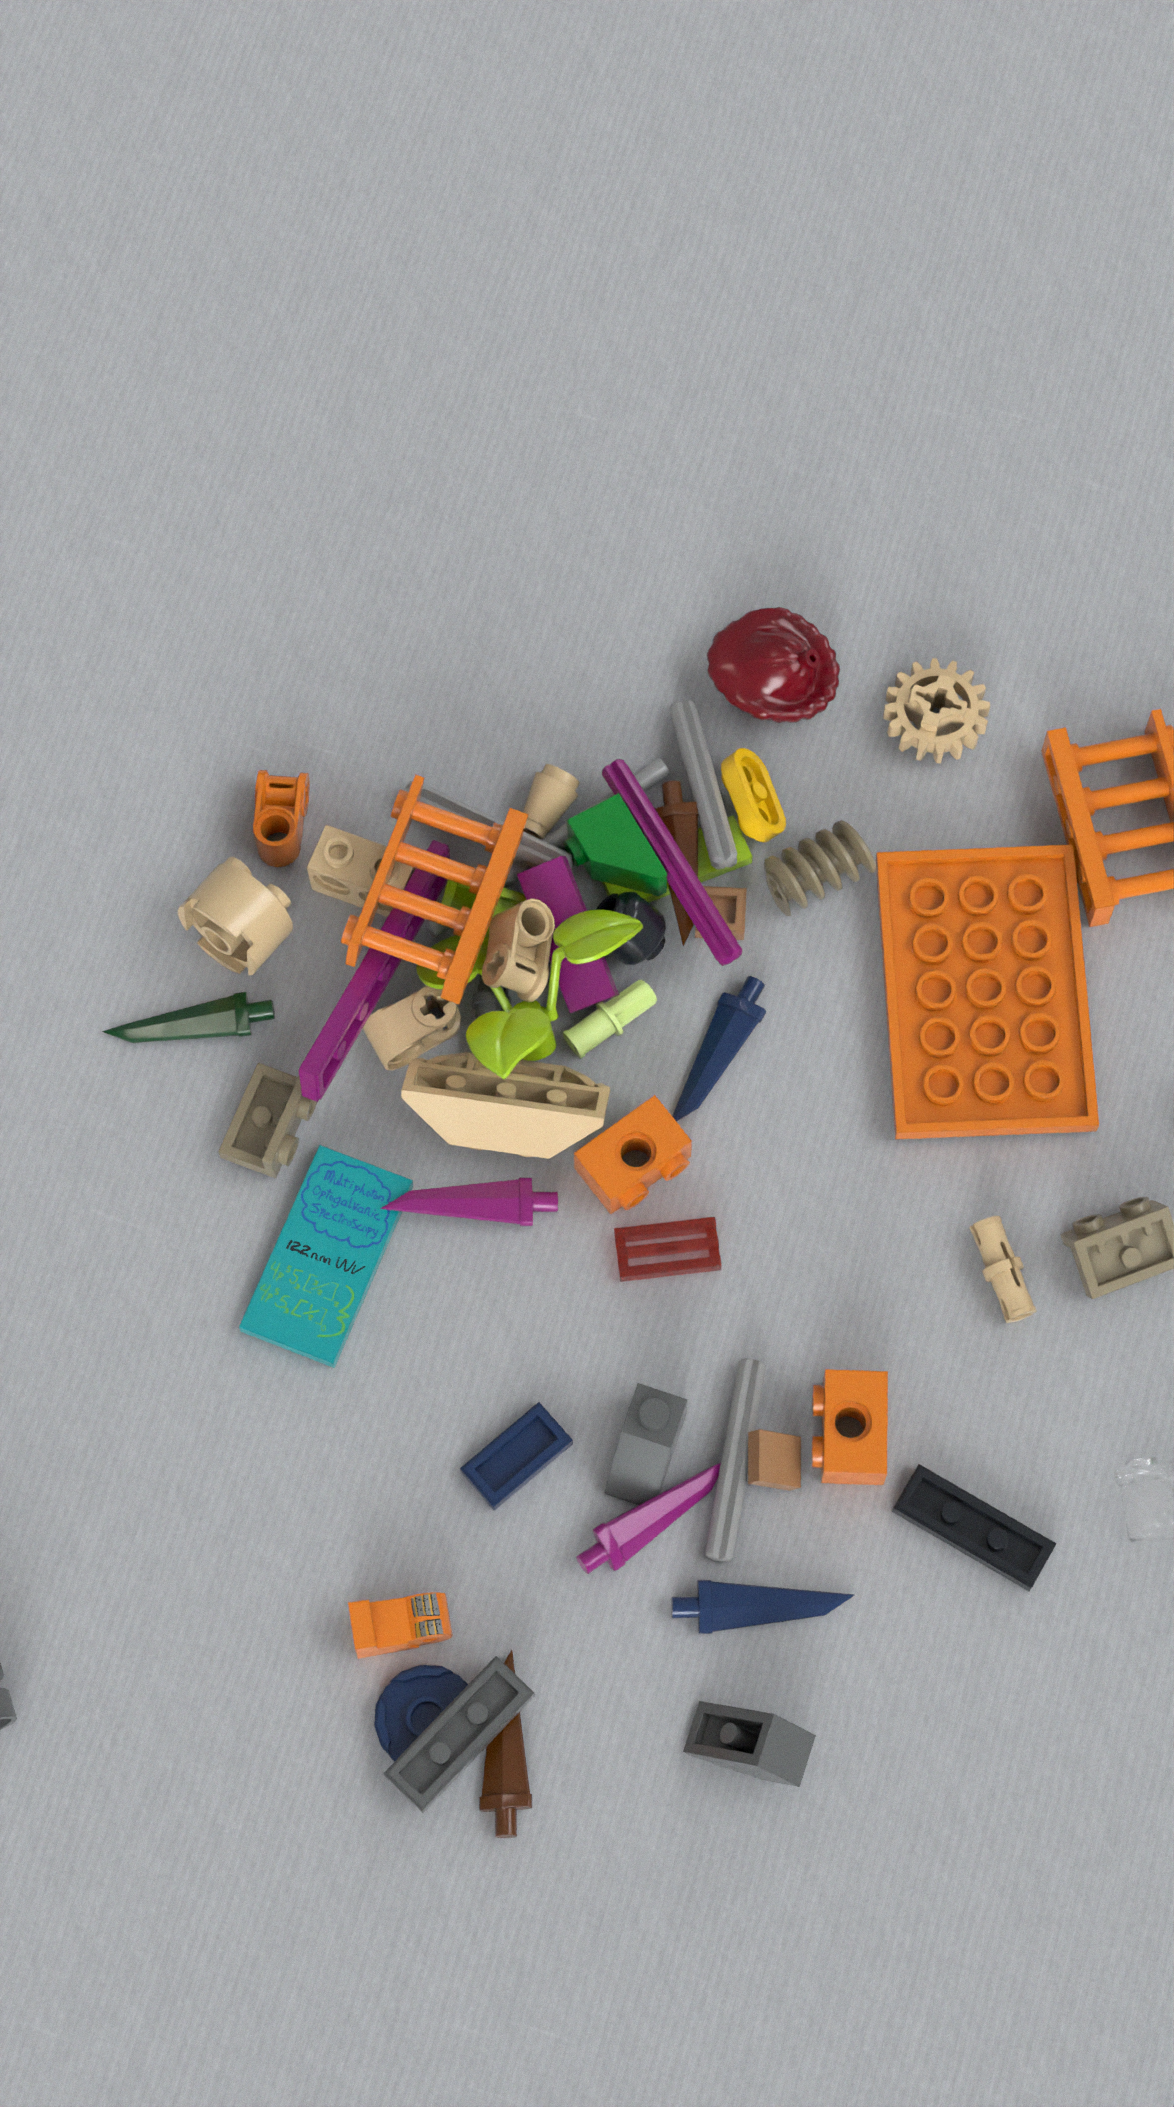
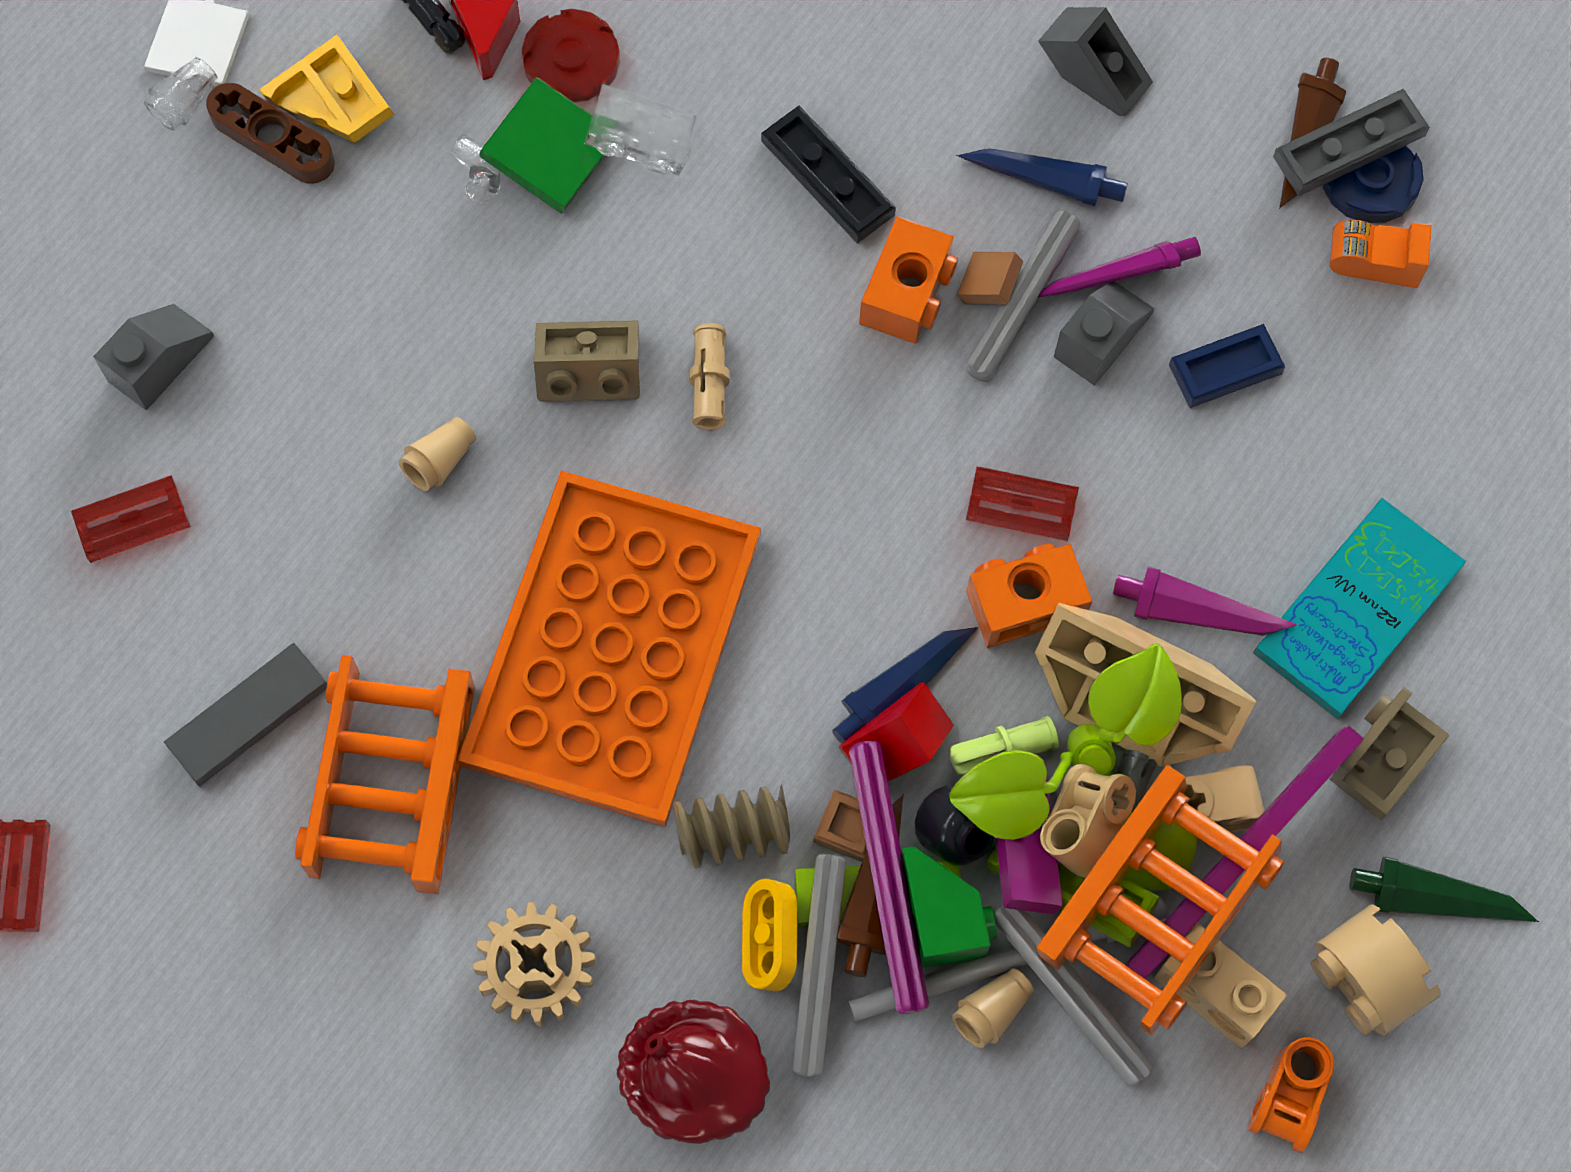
camera: 165 degrees left, 0 degrees up
(700, 995) = (906, 730): none -> red slope

